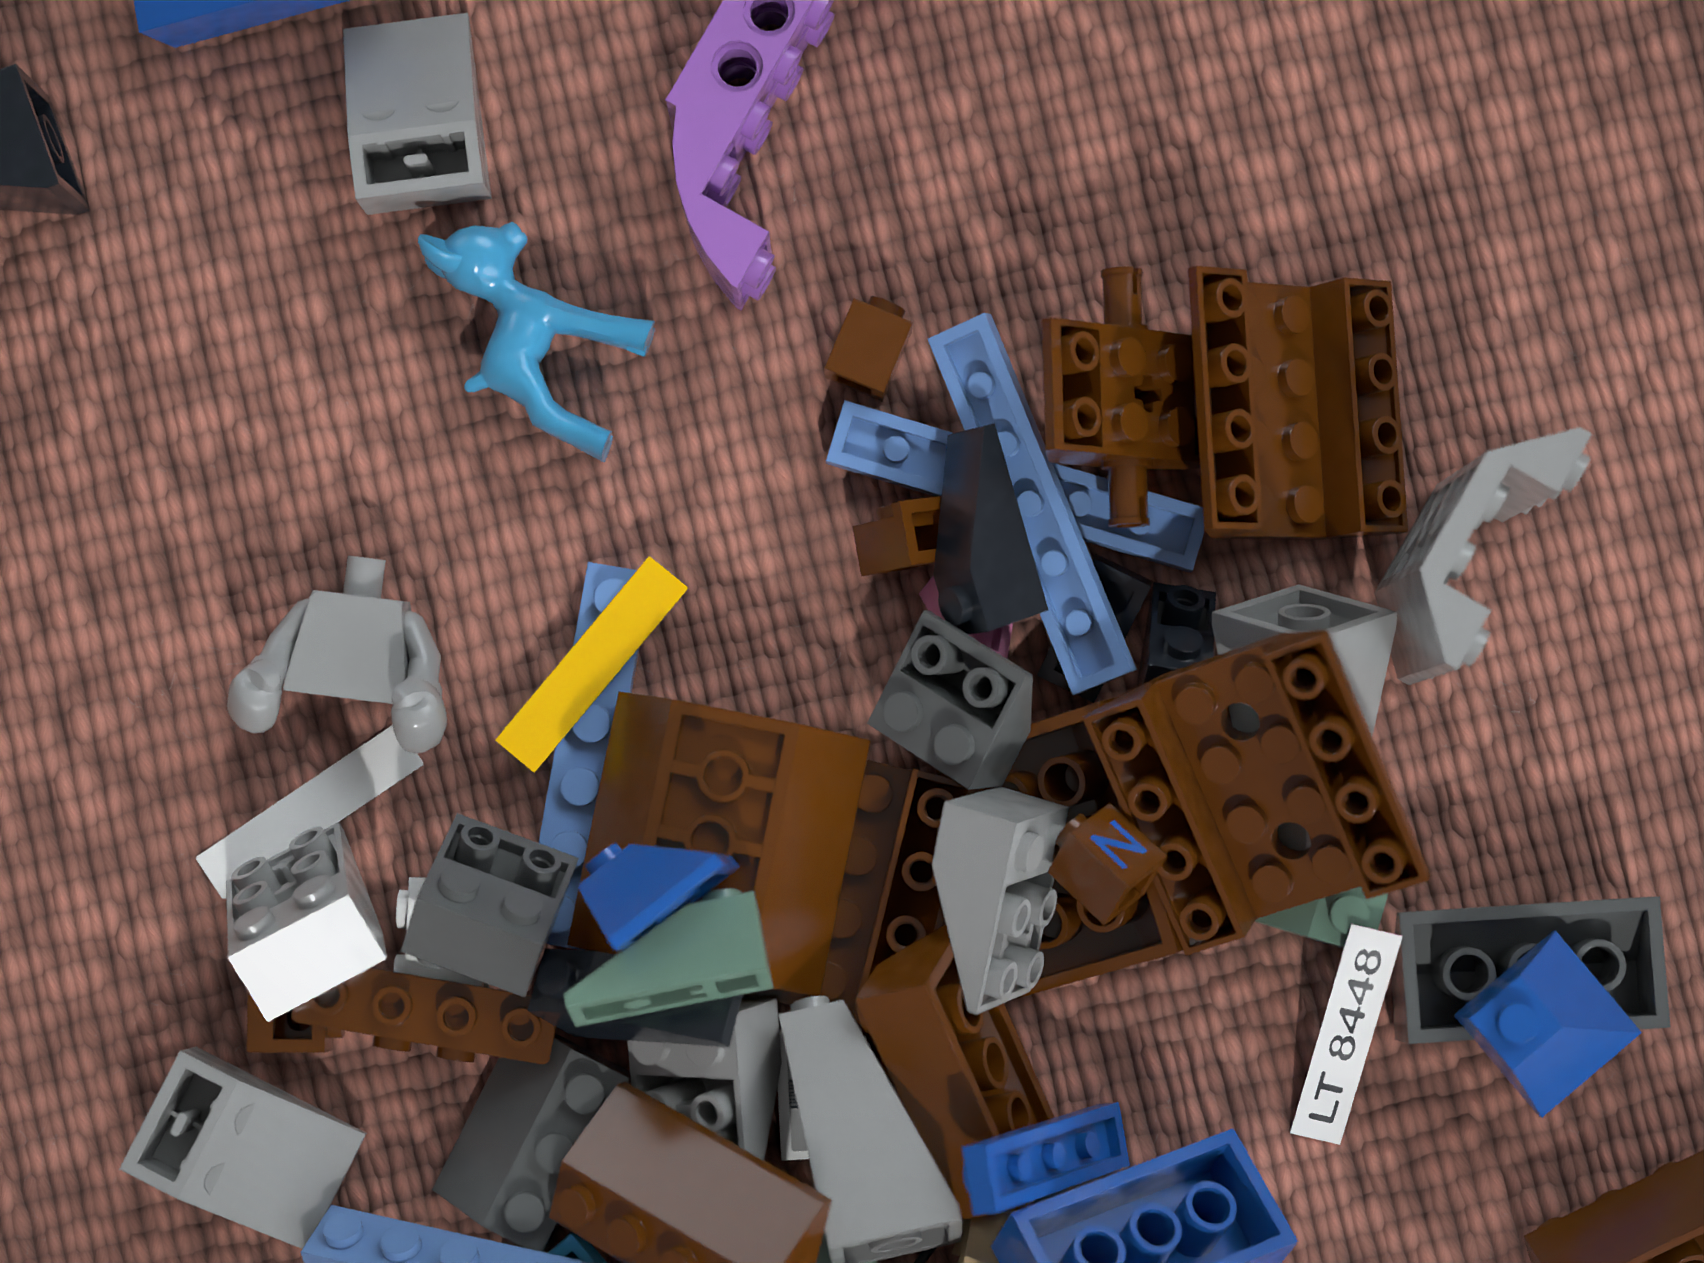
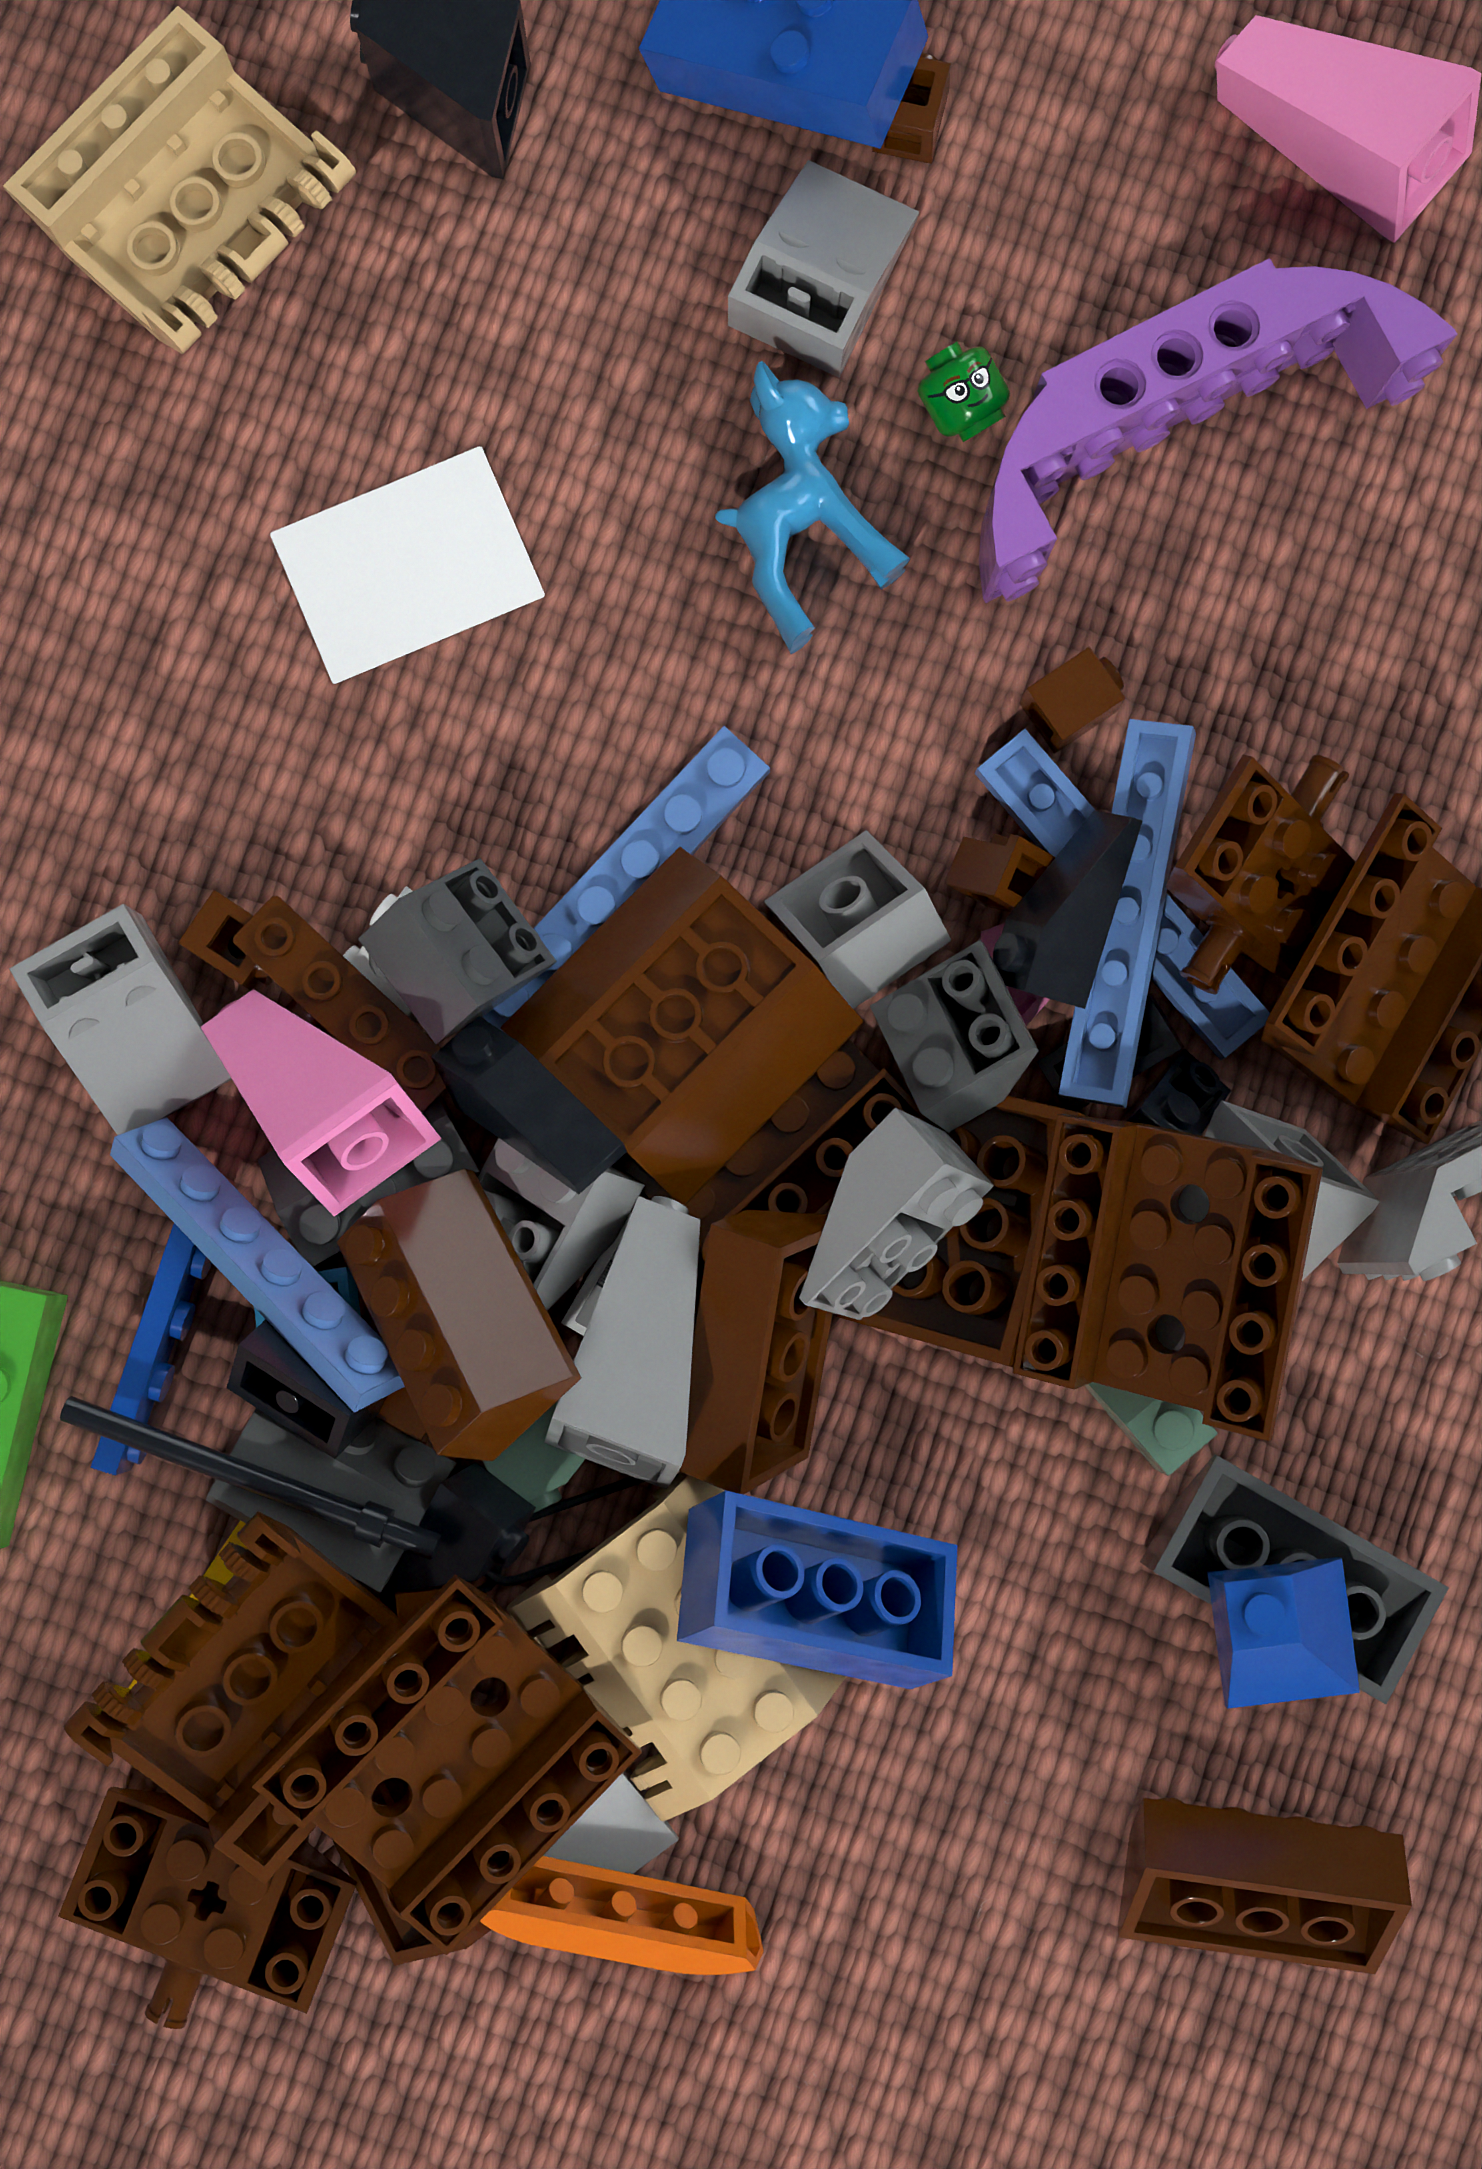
camera: 30 degrees right, 0 degrees up
(220, 591) = (407, 565): none -> white sticker
(301, 921) = (291, 863): light grey slope -> none
(315, 804) = (361, 783): white sticker -> none
(351, 650) = (480, 668): light grey torso -> none
(458, 1112) = (320, 1104): none -> bright pink slope
(591, 664) = (672, 810): yellow sticker -> none
(606, 145) = (963, 391): none -> green head
(646, 885) = (600, 1017): blue slope -> none
(690, 958) = (591, 1096): sand green slope -> none
(809, 654) = (859, 918): none -> light grey slope
(1044, 1158) = (781, 1463): blue plate -> none
(1105, 862) = (997, 1249): reddish brown brick -> none
(1346, 1034) = (1104, 1528): white sticker -> none

